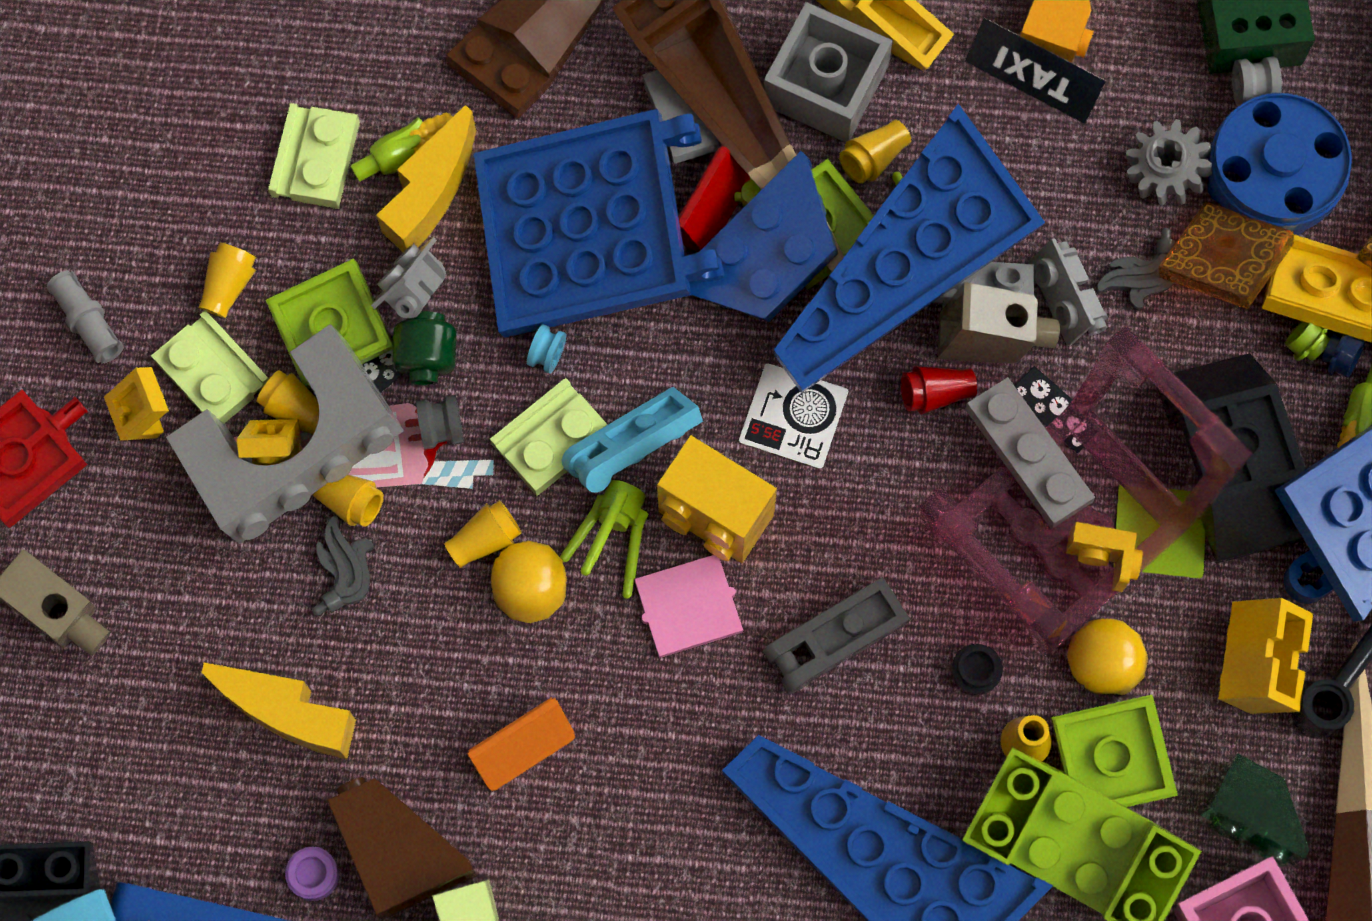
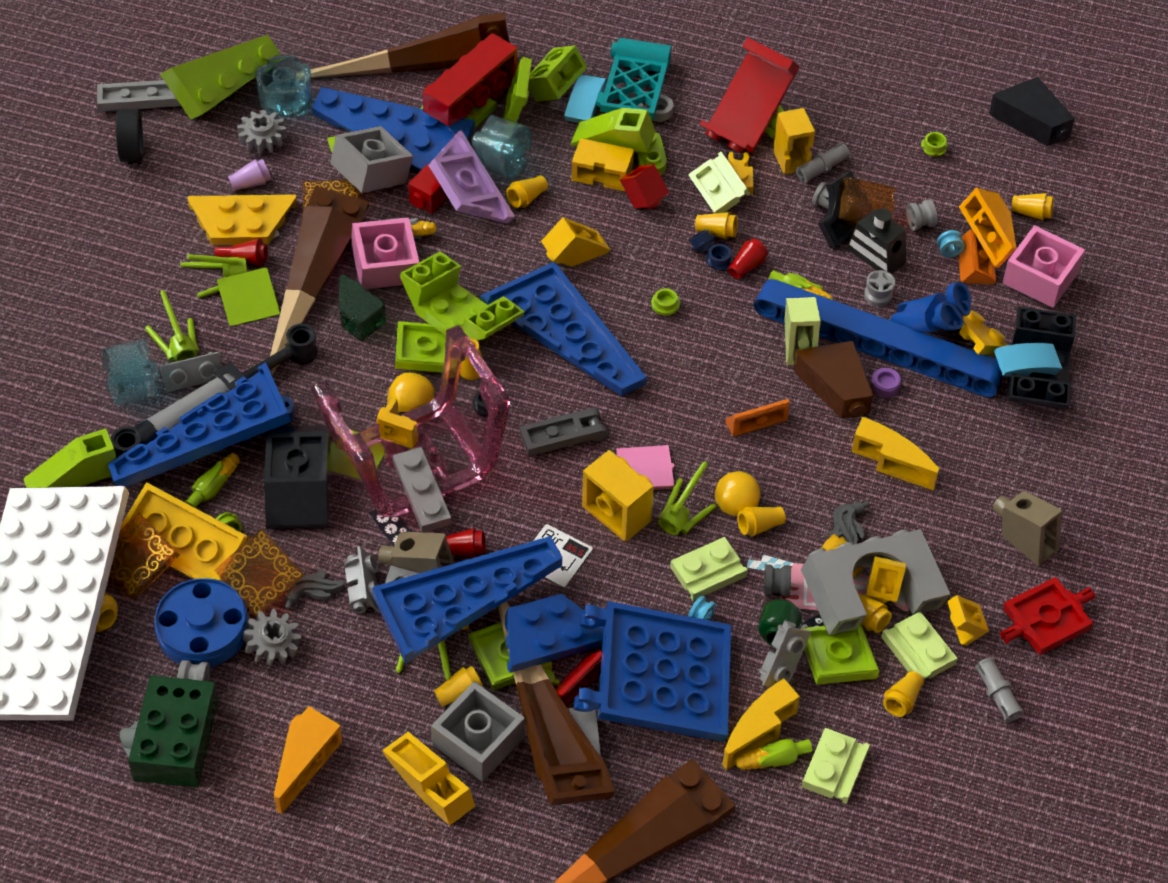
camera: 170 degrees left, 20 degrees down
(630, 438) = (658, 547): medium azure plate -> none
(1035, 70) = (337, 715): black sticker -> none
(1264, 656) = (329, 360): yellow brick -> none
(1343, 354) = (211, 507): dark blue plate -> none

